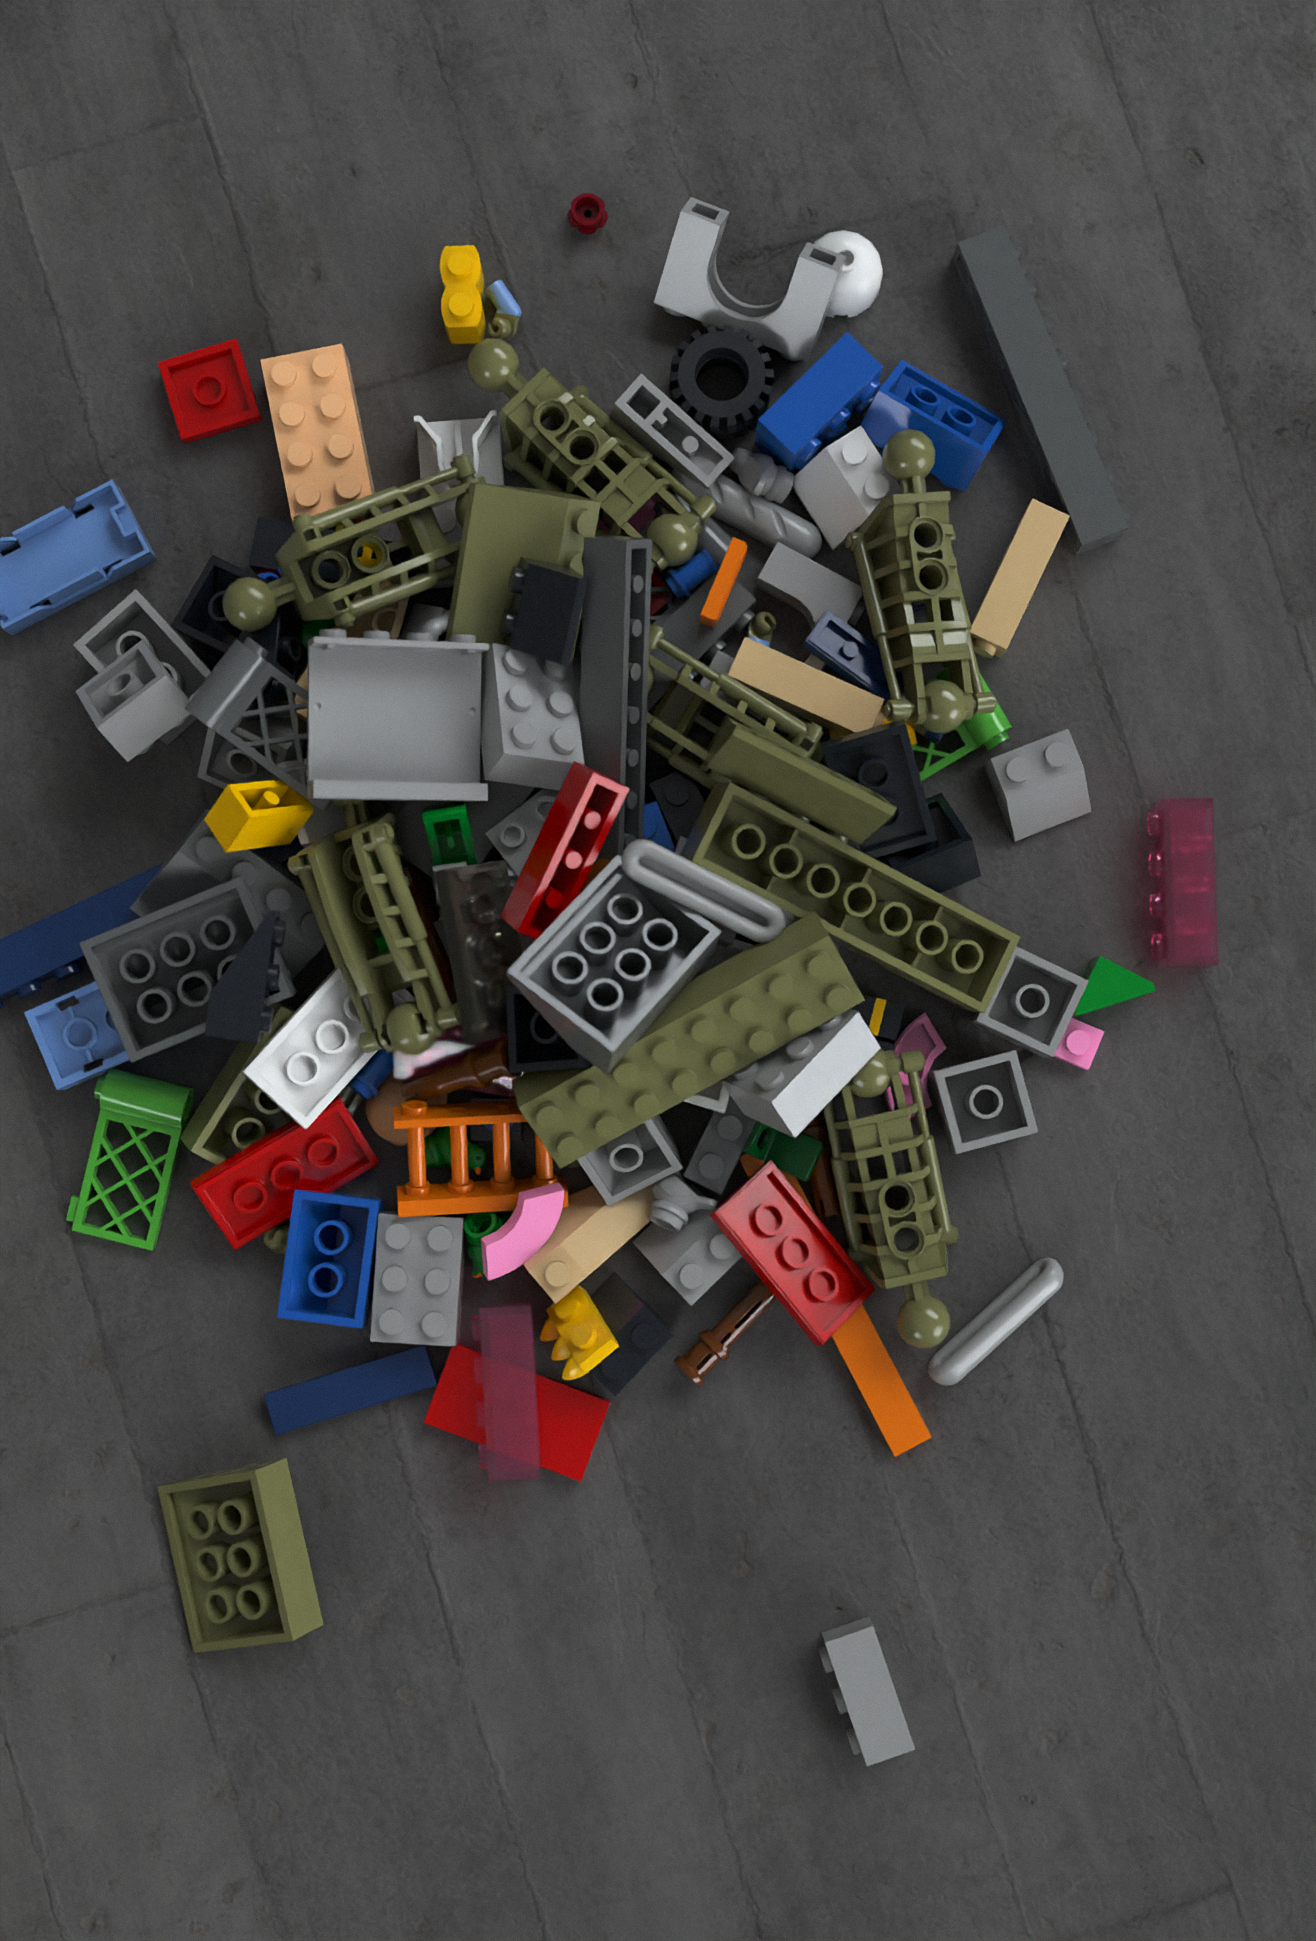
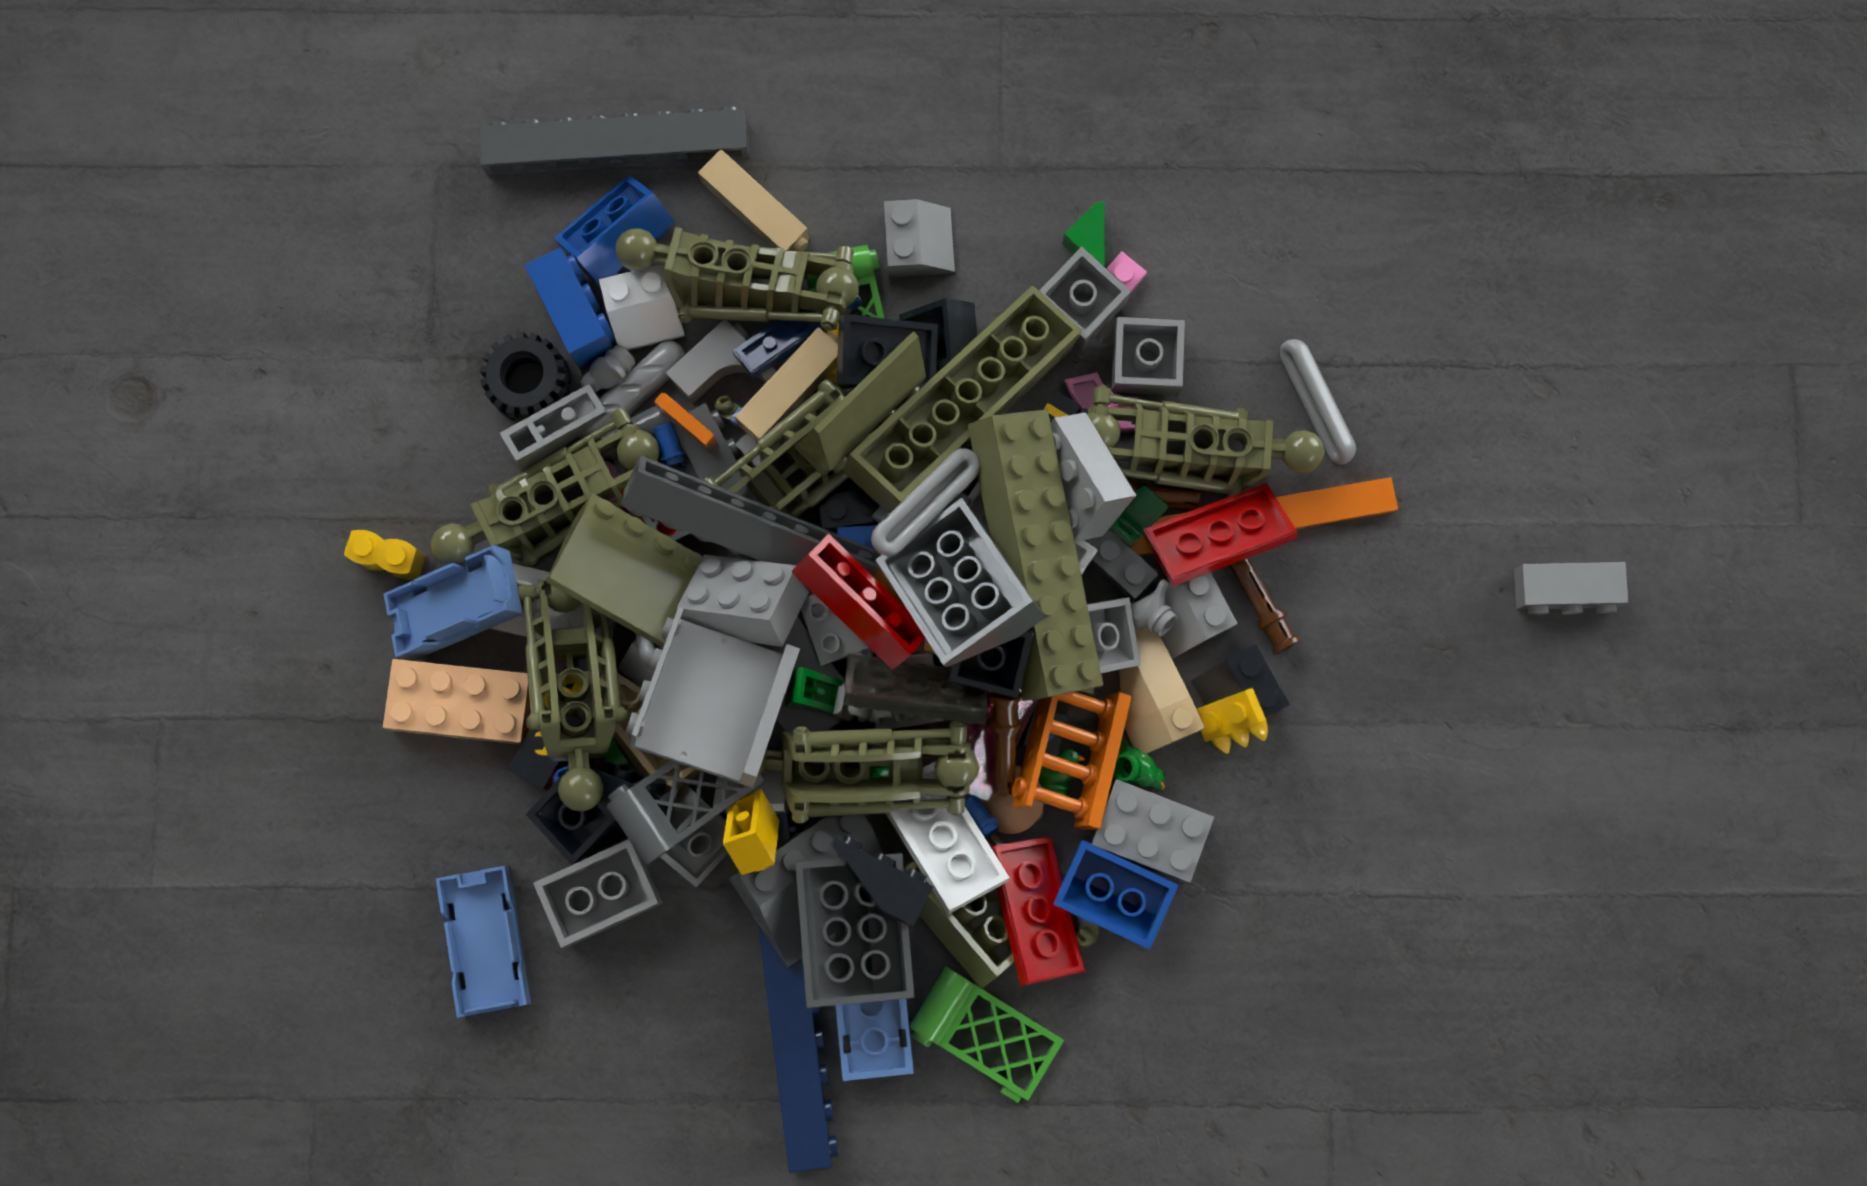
camera: 70 degrees left, 5 degrees down
(134, 701) = (624, 908): light grey slope -> none
(210, 391) = (390, 779): red plate -> none
(241, 1557) = (1328, 1043): olive slope -> none
(350, 1389) = (1221, 915): dark blue tile -> none
(426, 390) = (457, 603): none -> medium blue piece
(507, 313) = (410, 526): arm -> none
(508, 1390) = (1261, 786): clear pink brick -> none
(524, 1232) = (1141, 734): bright pink tile -> none
(543, 609) = (665, 557): black slope -> none
(567, 1415) = (1278, 789): red tile -> none
(582, 204) = (345, 439): dark red plate -> none
(694, 289) = (497, 315): light grey arch -> none
(860, 274) = (471, 261): white cylinder -> none
(1184, 883) = (1028, 156): clear pink brick -> none

